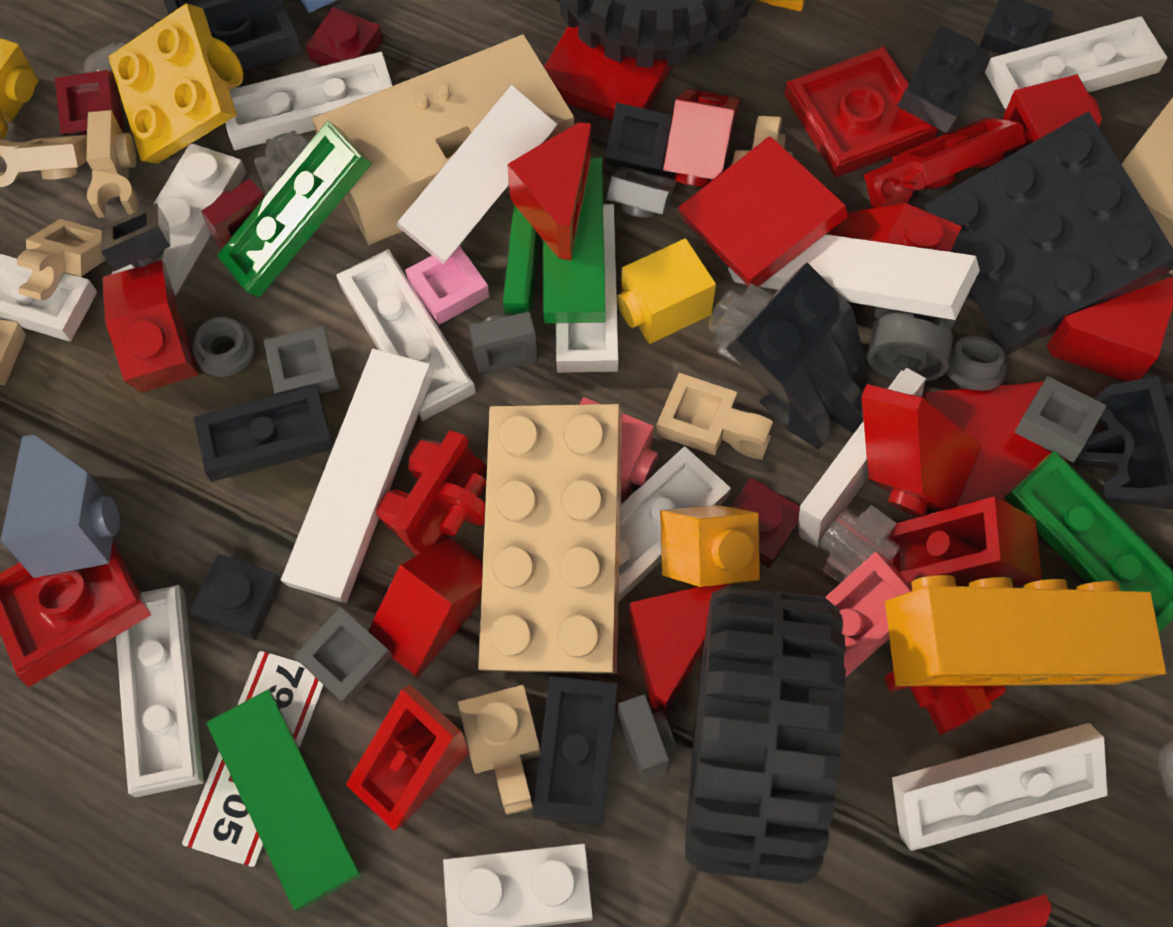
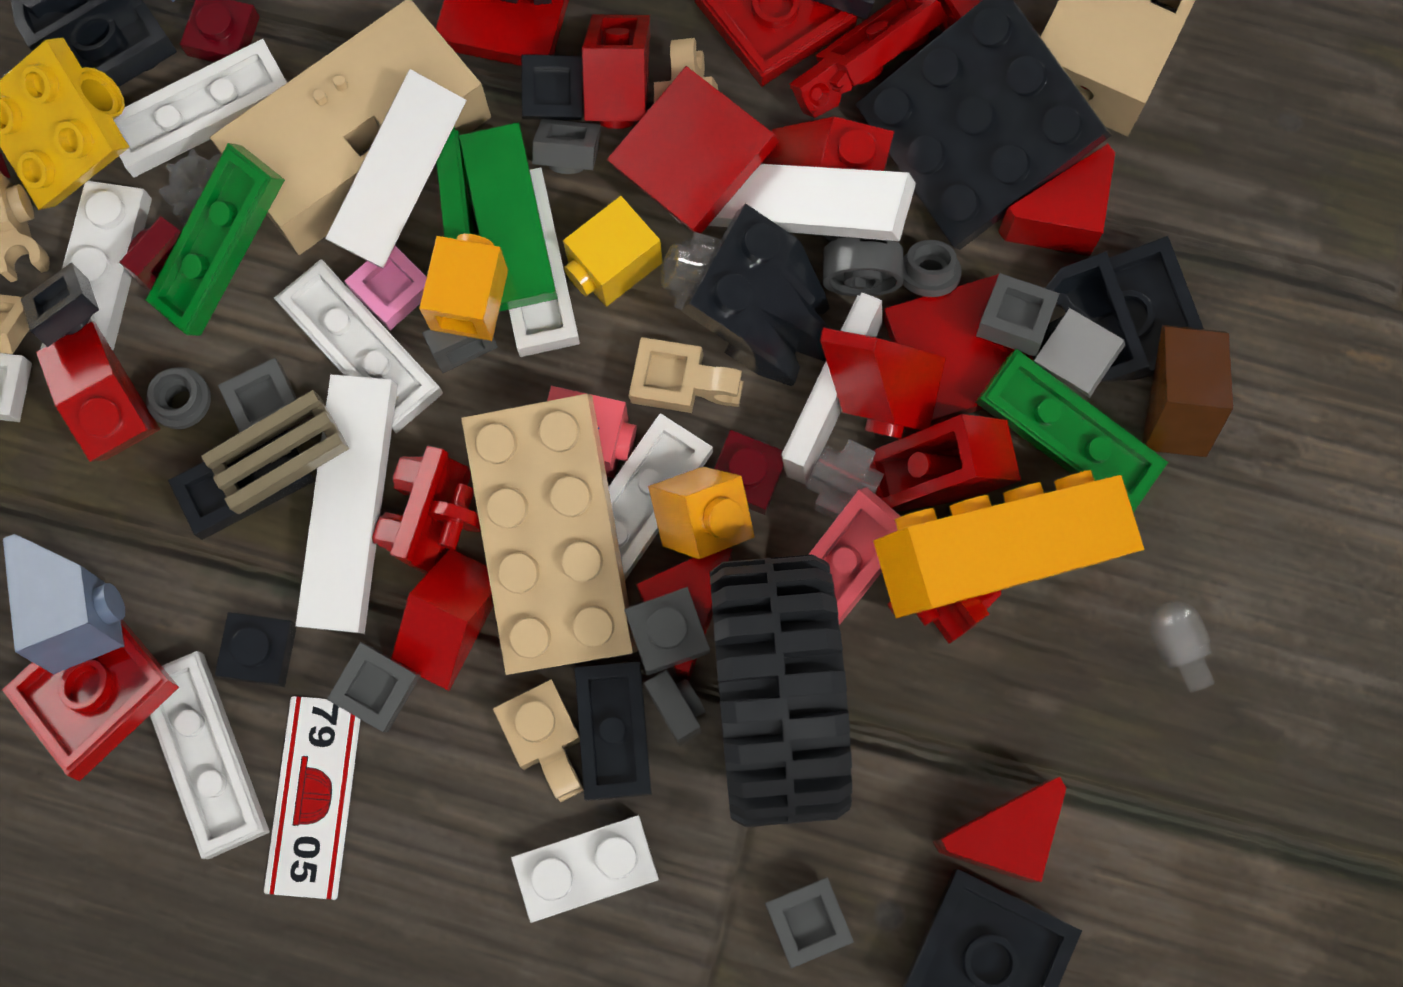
camera: 10 degrees left, 10 degrees up
(283, 800) = (348, 832): green tile -> none
(299, 398) = (263, 431): none -> dark tan tile
(407, 758) = (456, 774): red slope -> none
(519, 287) = (464, 286): none -> light orange brick
(551, 186) = (474, 170): red slope -> none
(653, 654) = (667, 631): none -> dark grey plate
(1000, 786) = (1008, 683): white plate -> none
(1120, 466) = (1079, 352): none -> light grey tile

